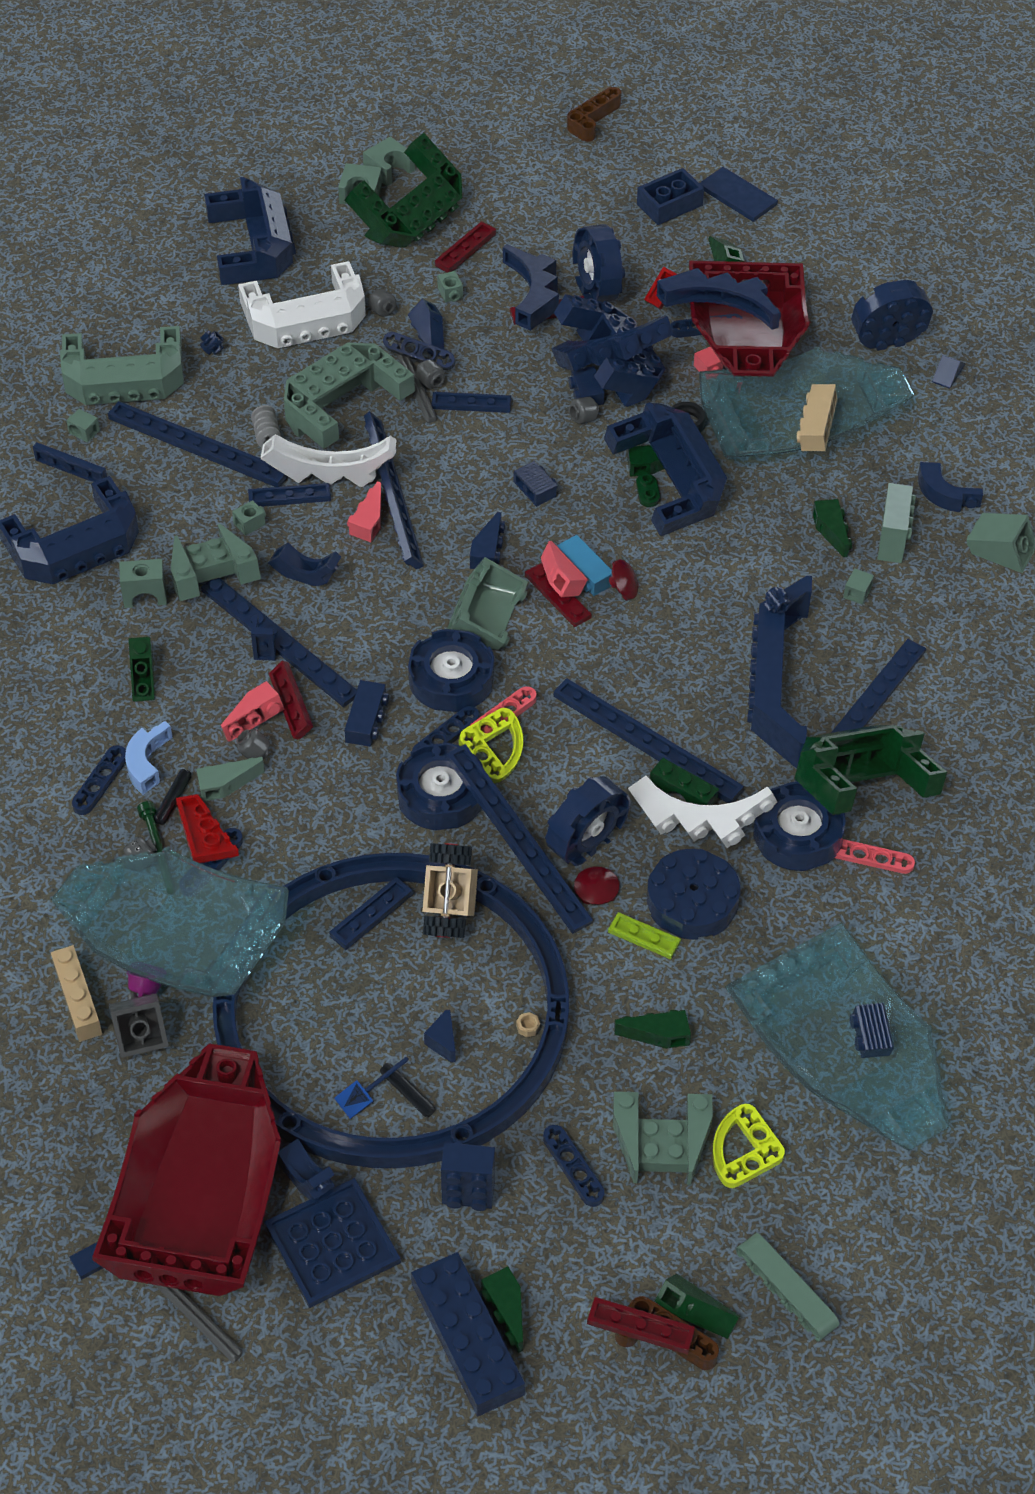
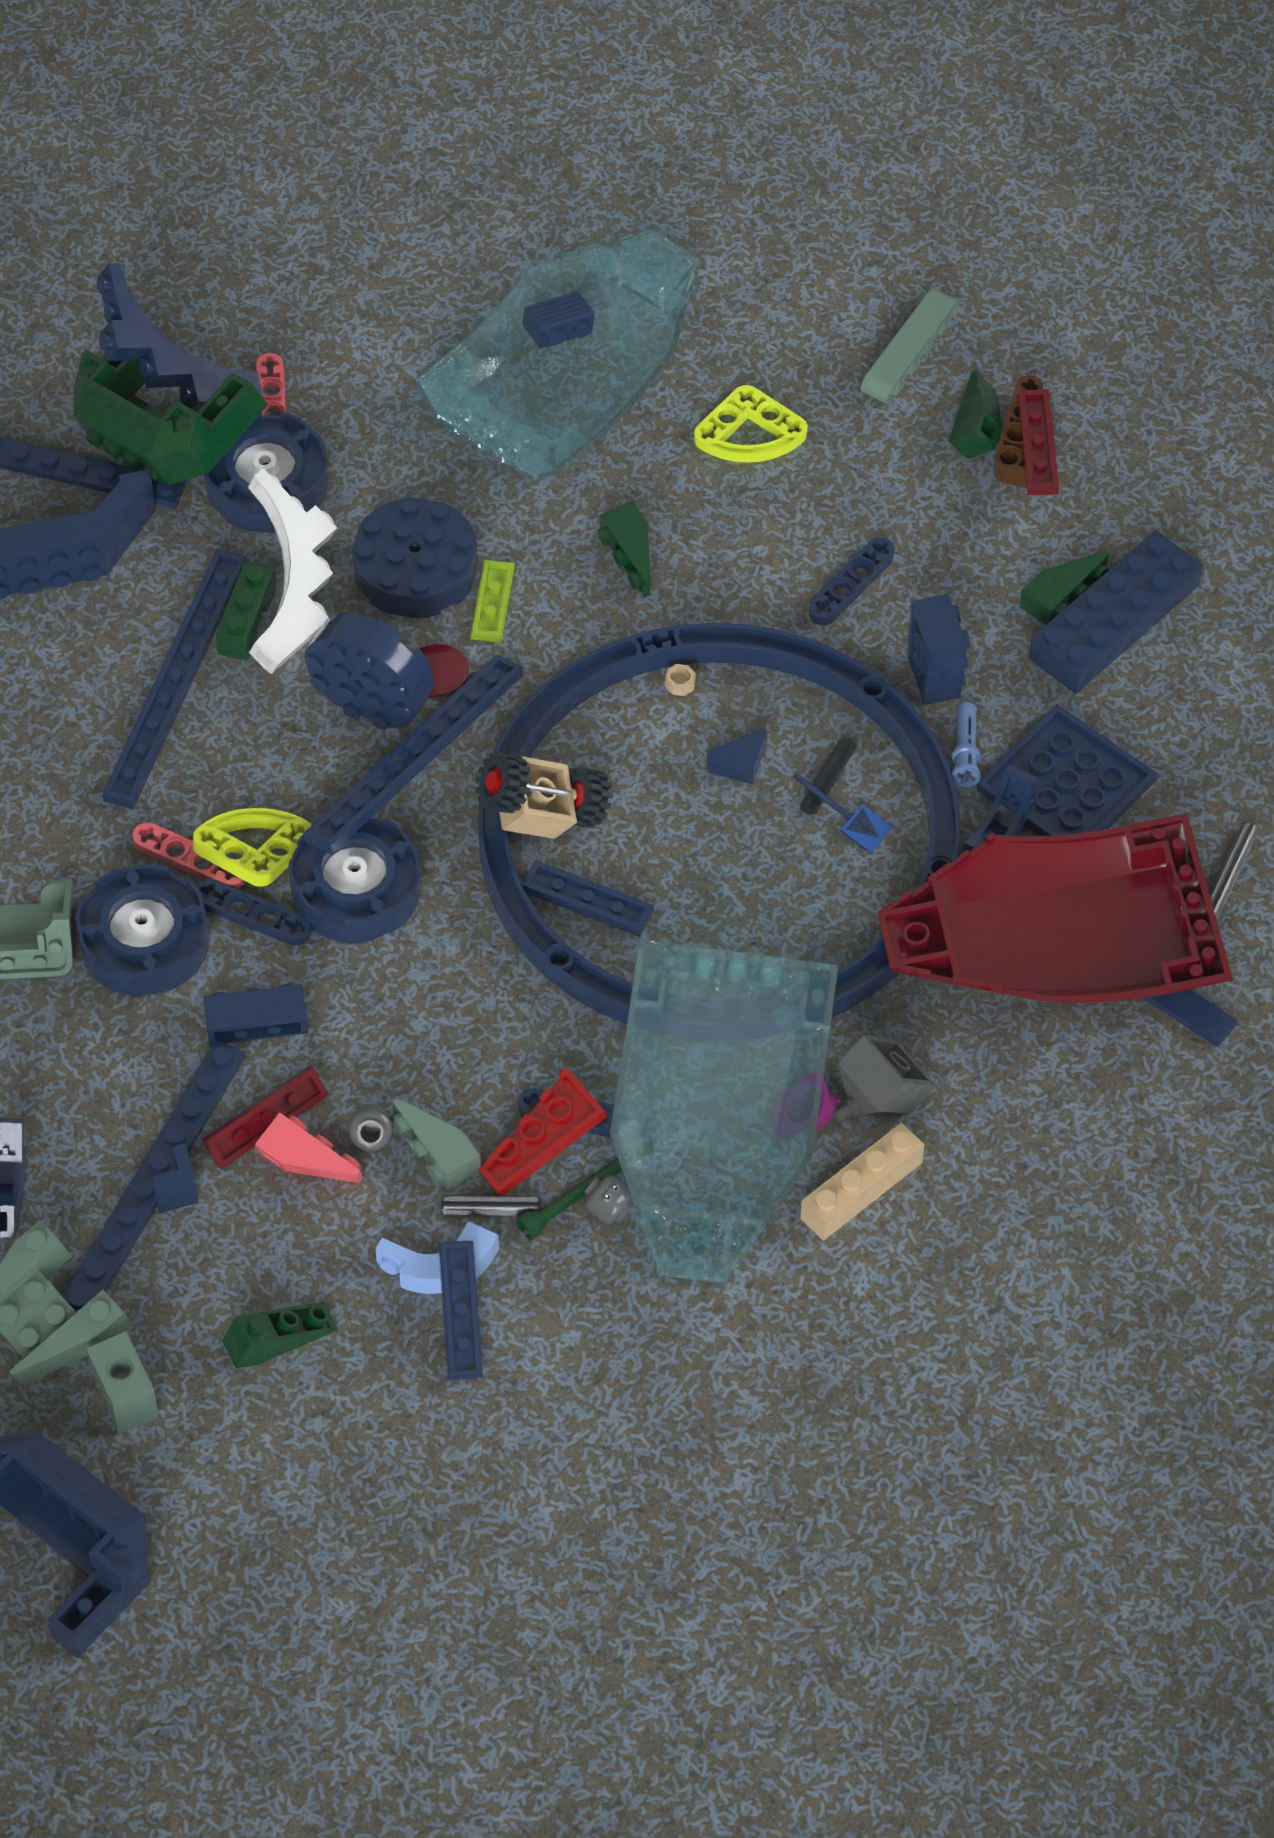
camera: 110 degrees left, 5 degrees up
(97, 779) = (502, 1301): dark blue beam -> none
(103, 752) = (460, 1310): none -> dark blue tile
(379, 1177) = (966, 754): none -> medium blue pin
(662, 1143) = (782, 495): sand green wedge -> none
(897, 772) = (162, 362): none -> dark blue arch

